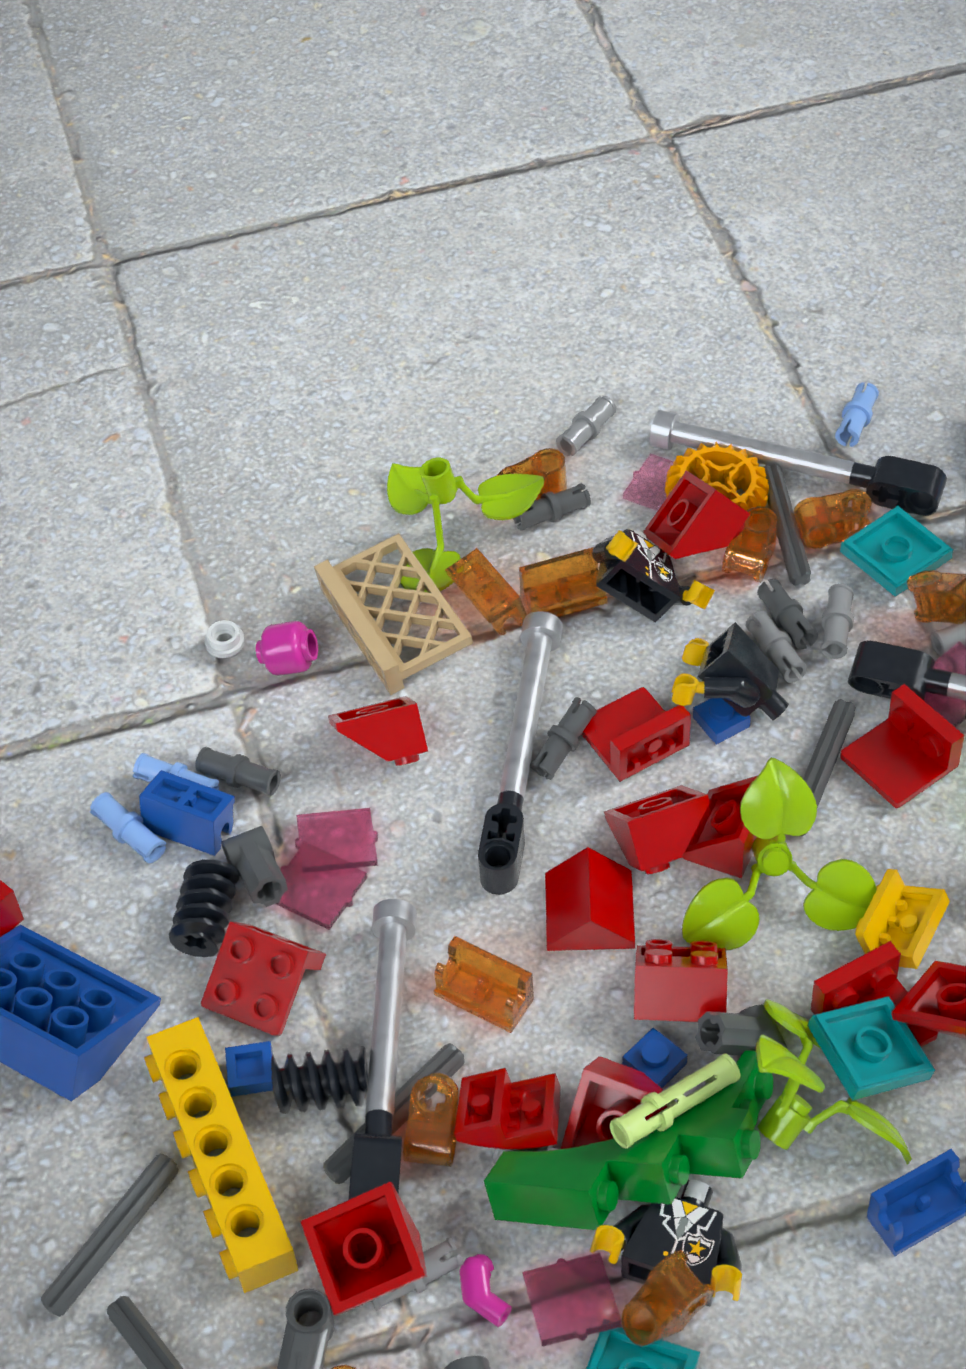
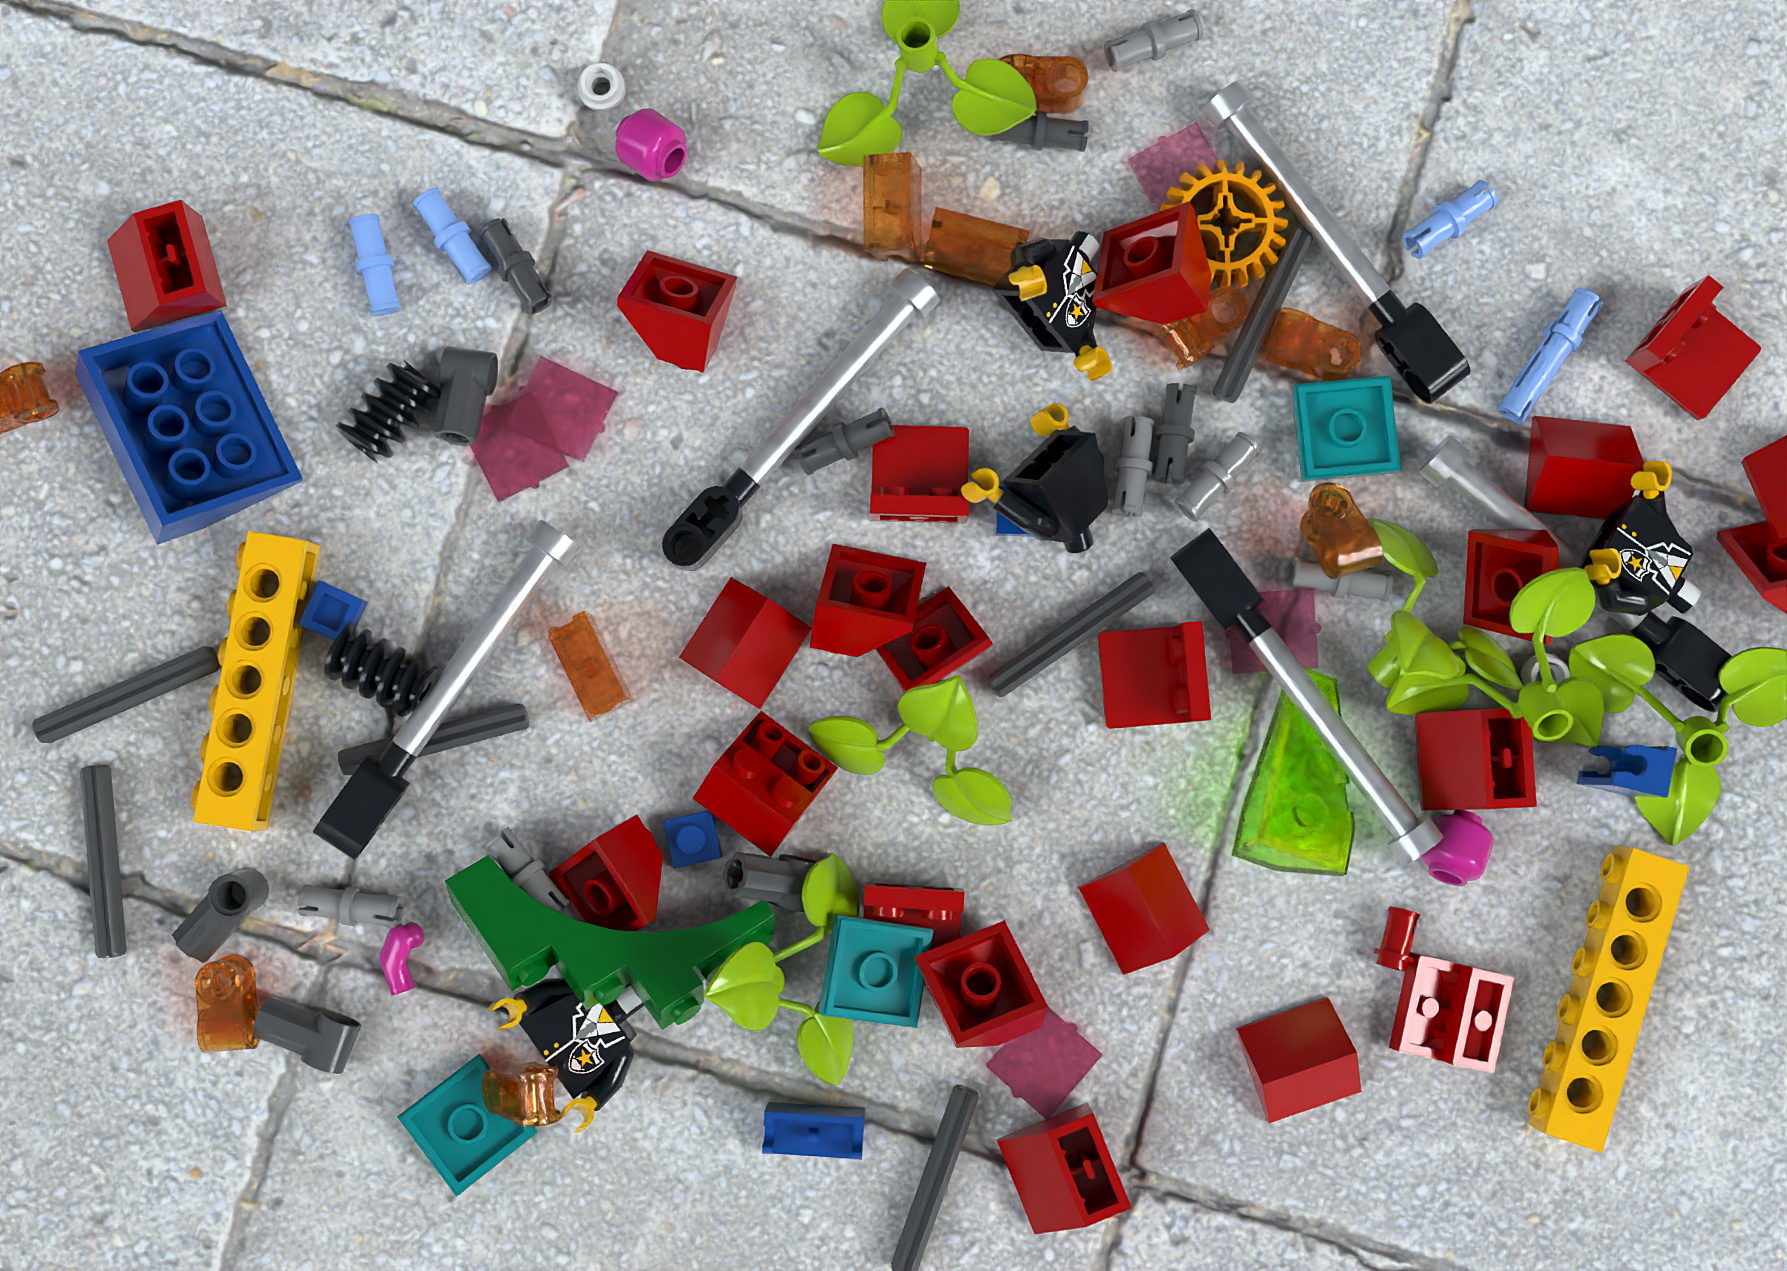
camera: 30 degrees right, 35 degrees up
(187, 812) = (436, 285): blue hinge -> none
(258, 977) = (402, 516): red bracket -> none
(365, 1248) = (308, 879): red slope -> none
(368, 632) = (743, 156): tan fence -> none
(431, 1129) = (453, 778): clear orange piece -> none
(506, 1113) = (523, 813): red slope -> none
(571, 1299) = (458, 1016): clear pink piece -> none
(633, 1125) = (644, 931): yellowish green pin -> none
(903, 916) = (1008, 857): yellow bracket -> none

